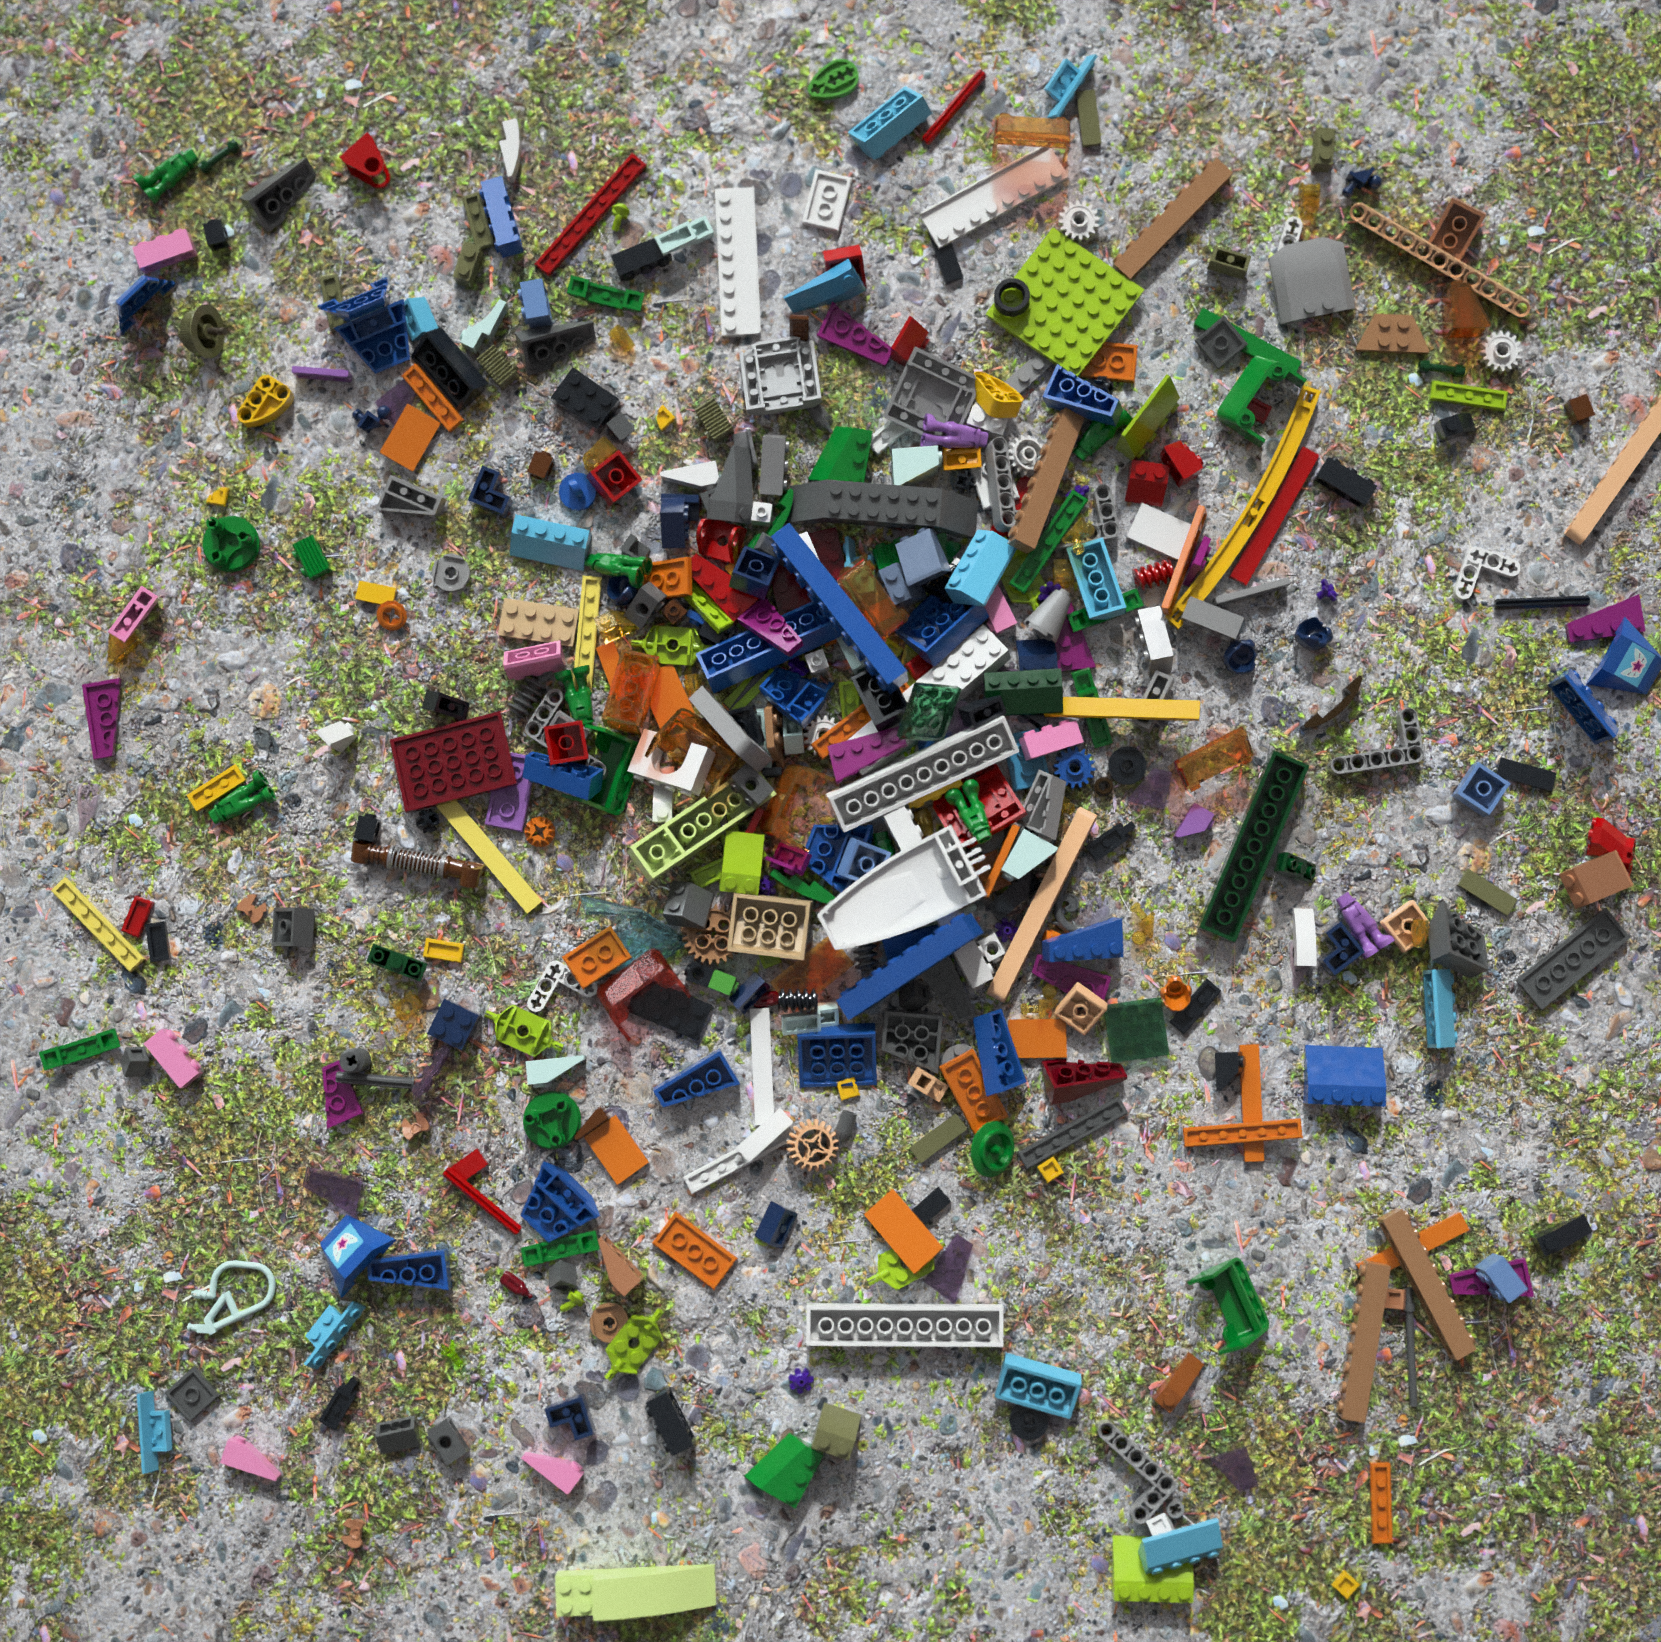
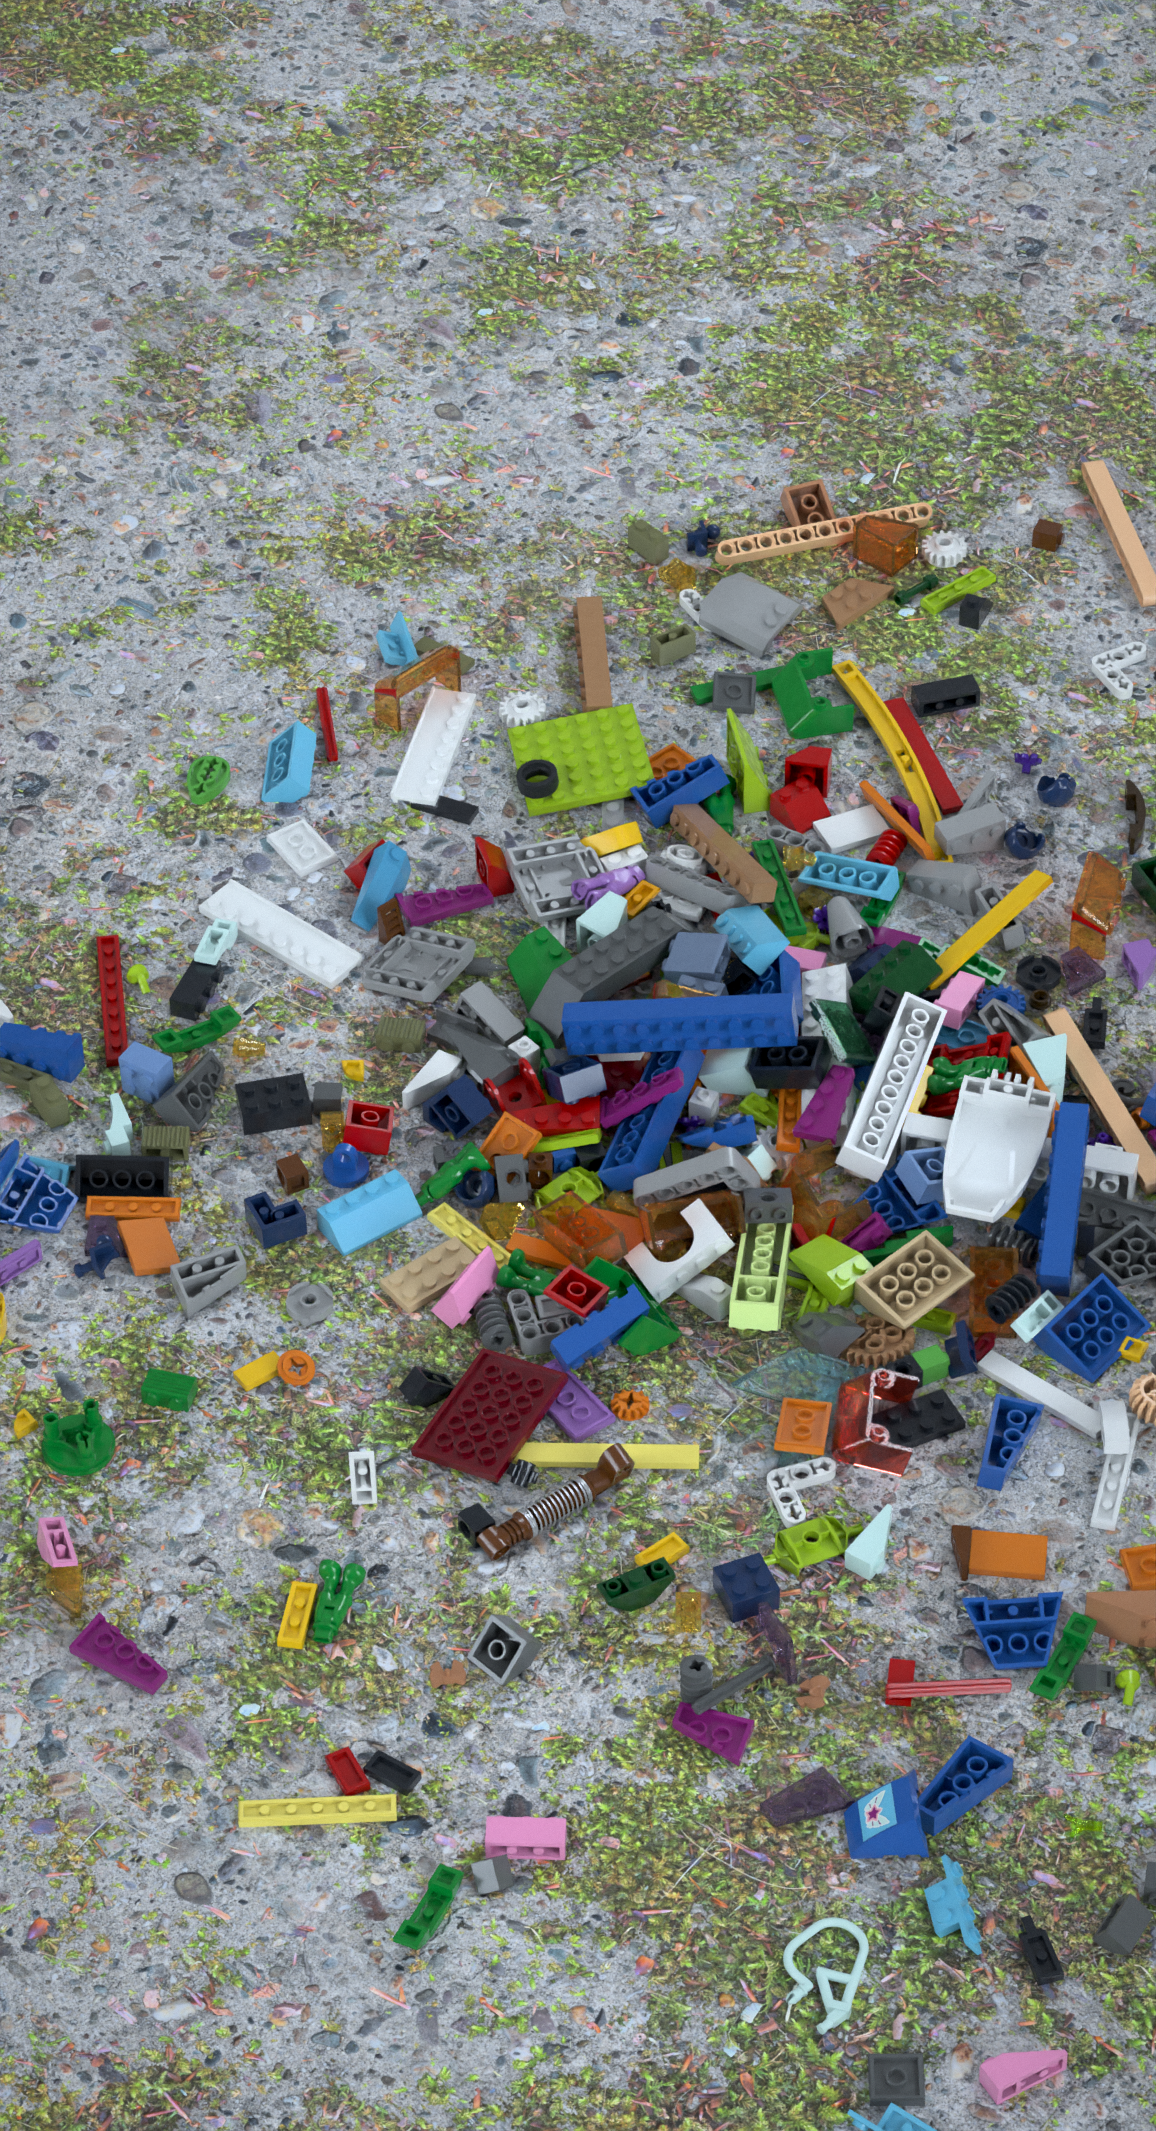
camera: 50 degrees left, 40 degrees down
(515, 1285) = (1062, 1725): dark red piece -> none
(552, 1120) = (924, 1582): green piece -> none

